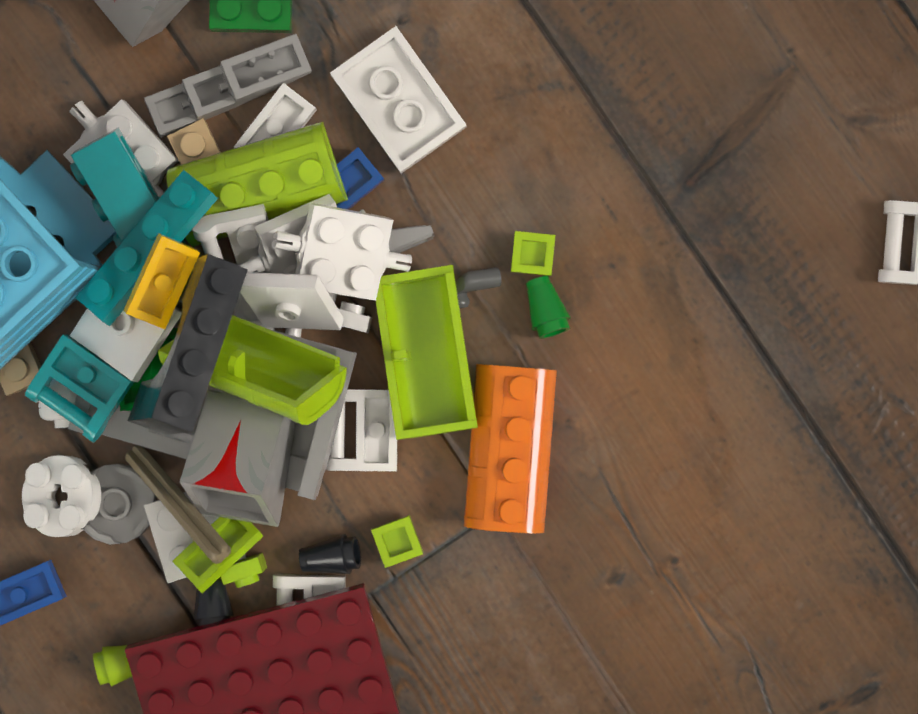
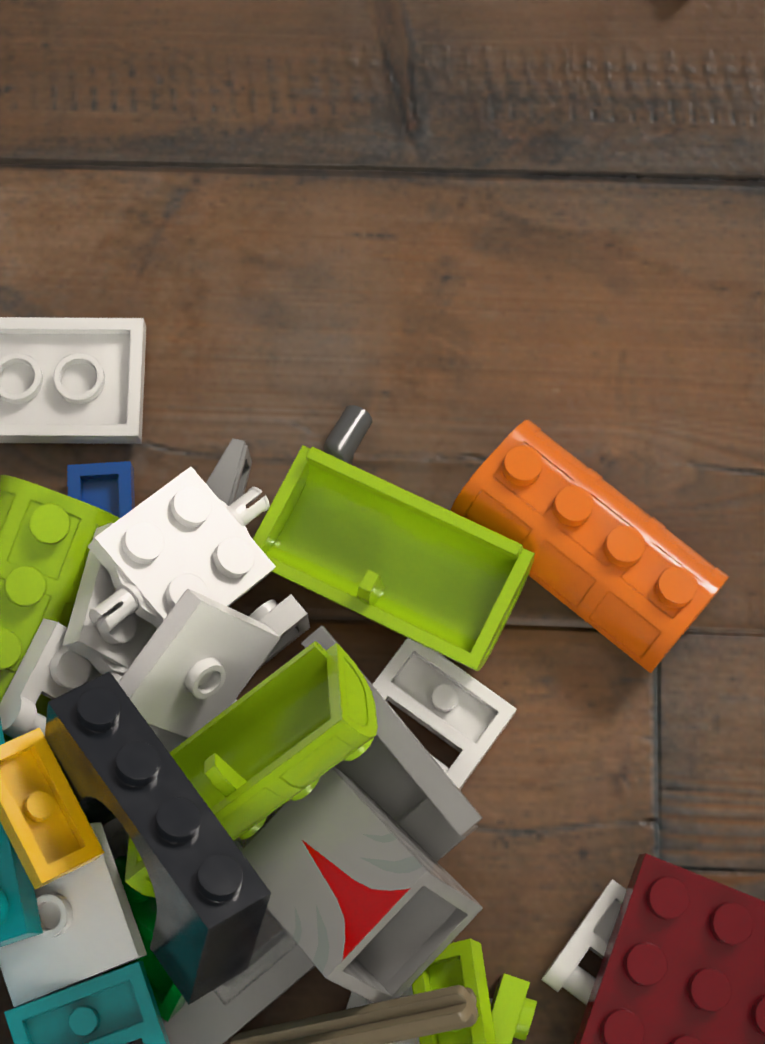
camera: 55 degrees left, 15 degrees down
(333, 555) = (570, 879): black cone -> none
(397, 541) = (611, 776): lime plate -> none
(533, 253) = (361, 351): lime plate -> none
(546, 308) = (442, 382): green cone -> none

